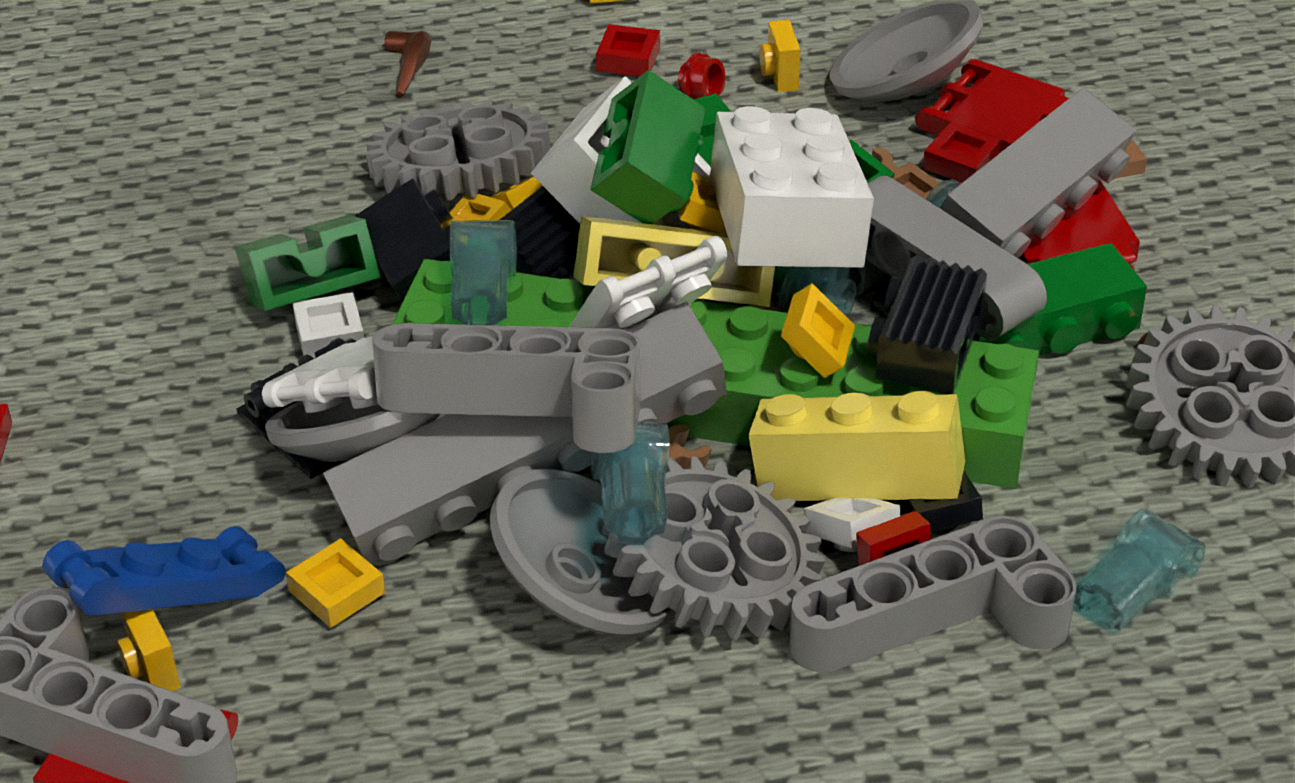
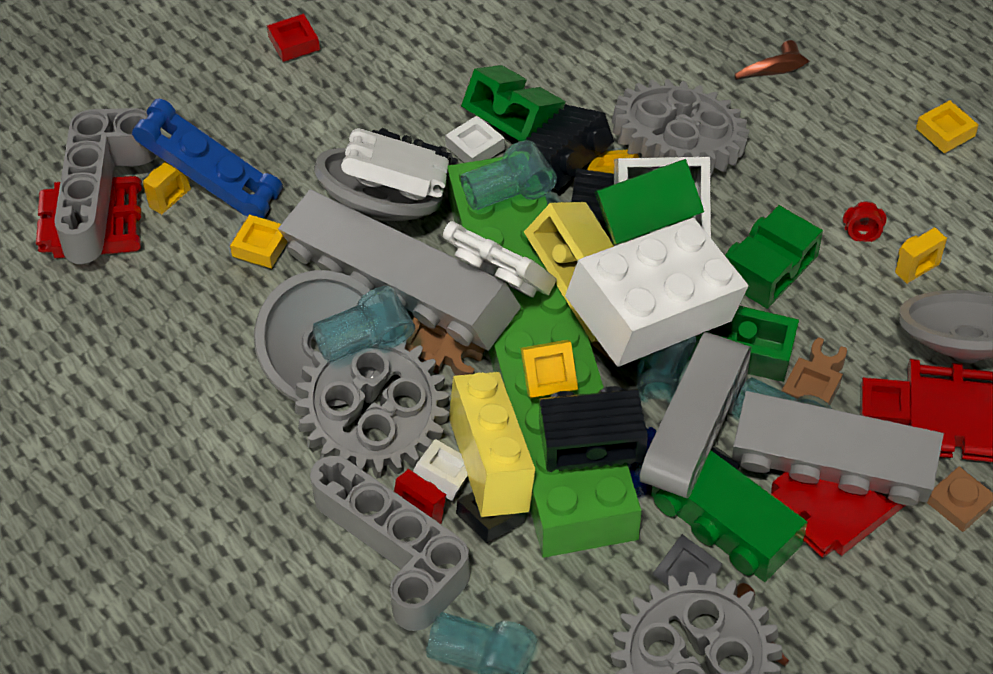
camera: 65 degrees right, 10 degrees up
(515, 373) = (396, 254): light grey beam -> none
(627, 50) = (866, 169): red plate -> none
(1103, 365) = (686, 558): none -> black plate

